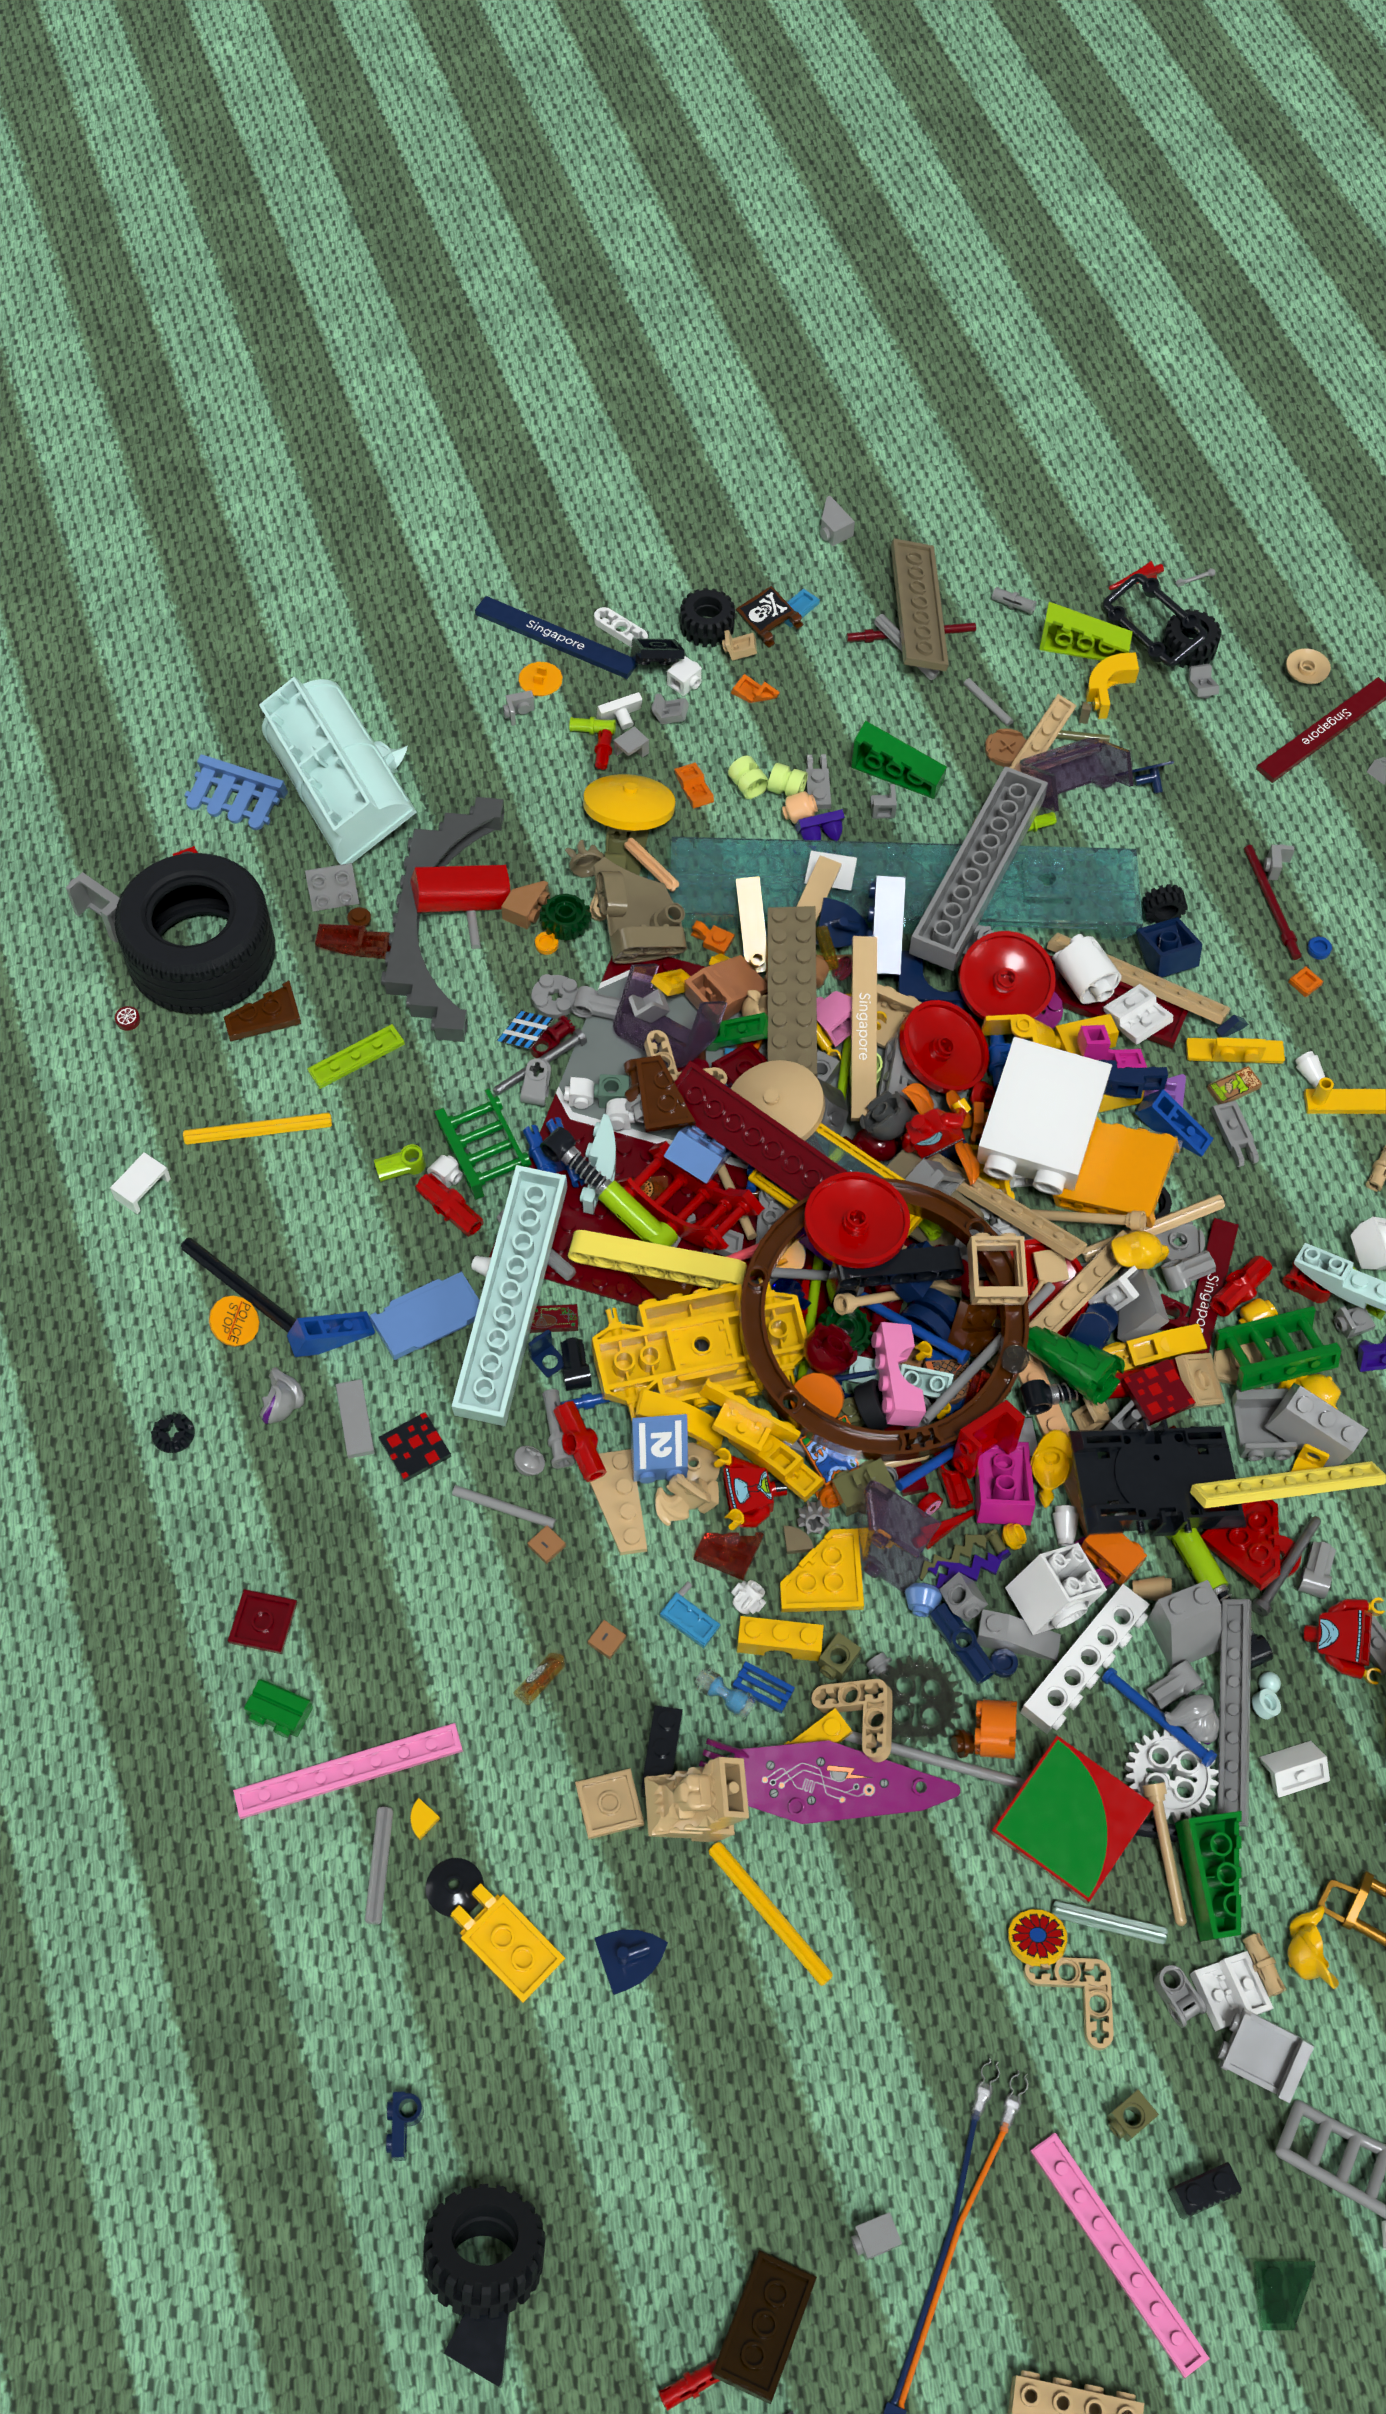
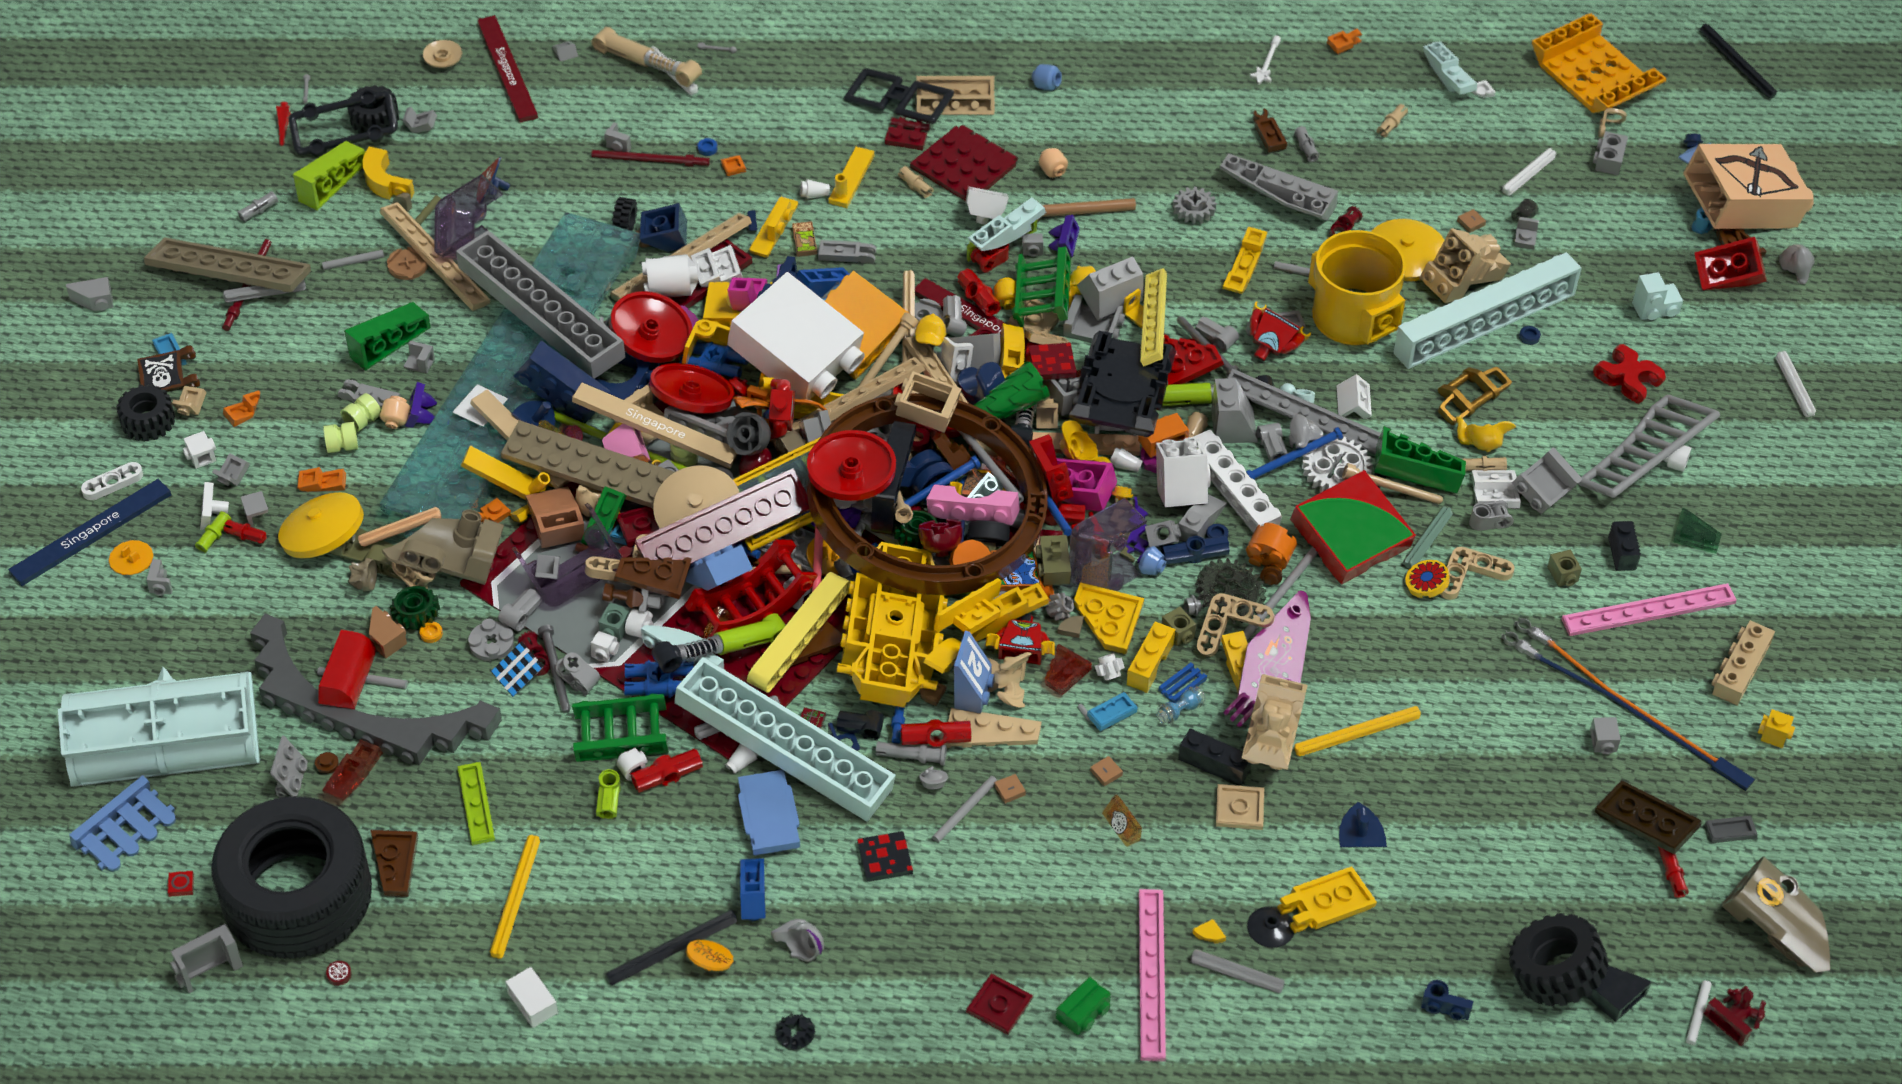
camera: 70 degrees left, 10 degrees down
(355, 1418) = (840, 892): light grey tile -> none
(656, 650) = (164, 456): black plate -> none
(671, 981) = (531, 546): yellow plate -> none
(1015, 1359) = (1000, 423): clear smoke tile -> none

